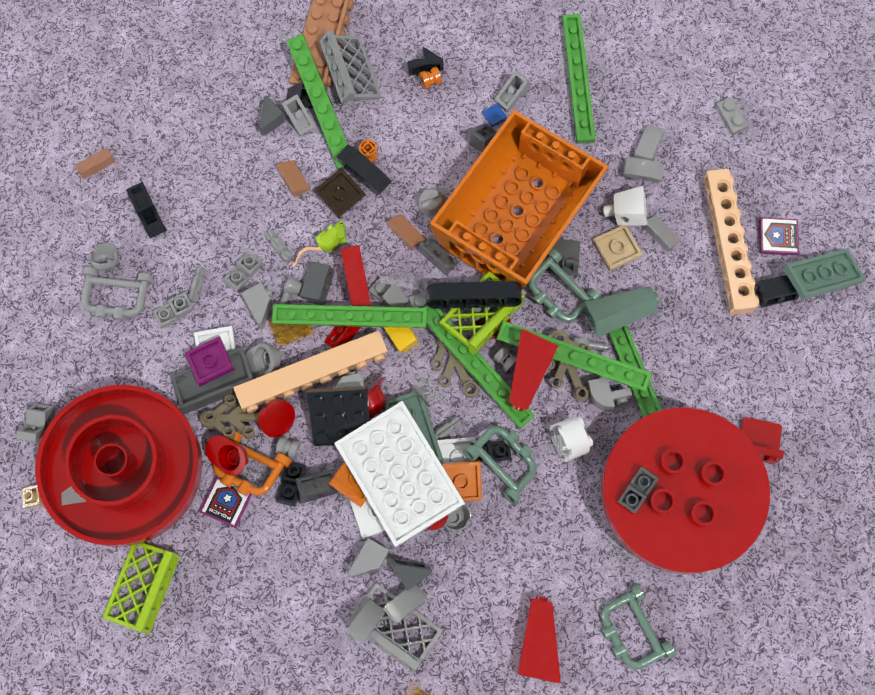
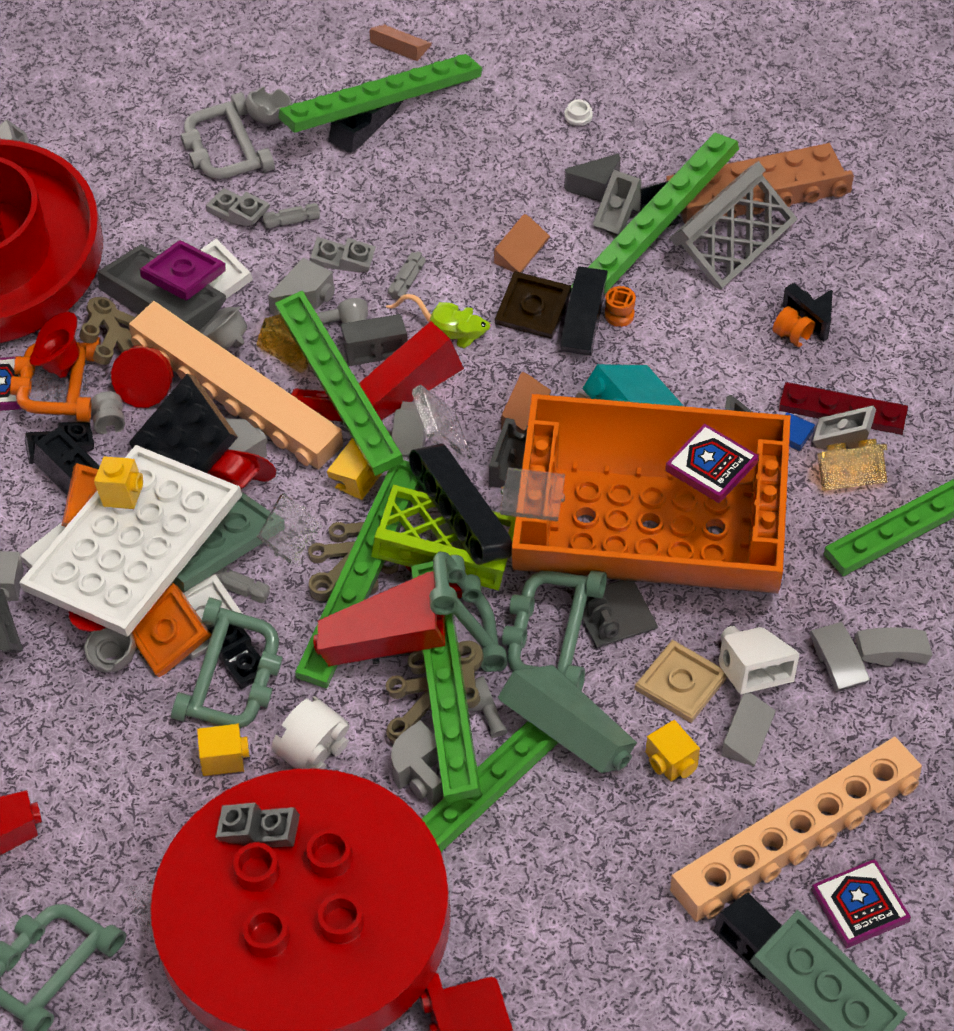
camera: 60 degrees right, 20 degrees down
(139, 194) = (379, 93): none -> bright green plate
(213, 100) = (578, 113): none -> white plate
(366, 462) = (118, 482): none -> yellow brick
(439, 176) = (628, 384): none -> teal brick
(492, 85) = (821, 403): none -> dark red plate
(498, 256) = (532, 494): none -> clear piece
(527, 161) = (711, 463): none -> tile
(535, 100) = (852, 466): none -> clear yellow bracket
(547, 330) = (444, 601): none -> sand green bar
(552, 486) = (222, 749): none -> yellow brick
(660, 273) = (672, 751): none -> yellow brick

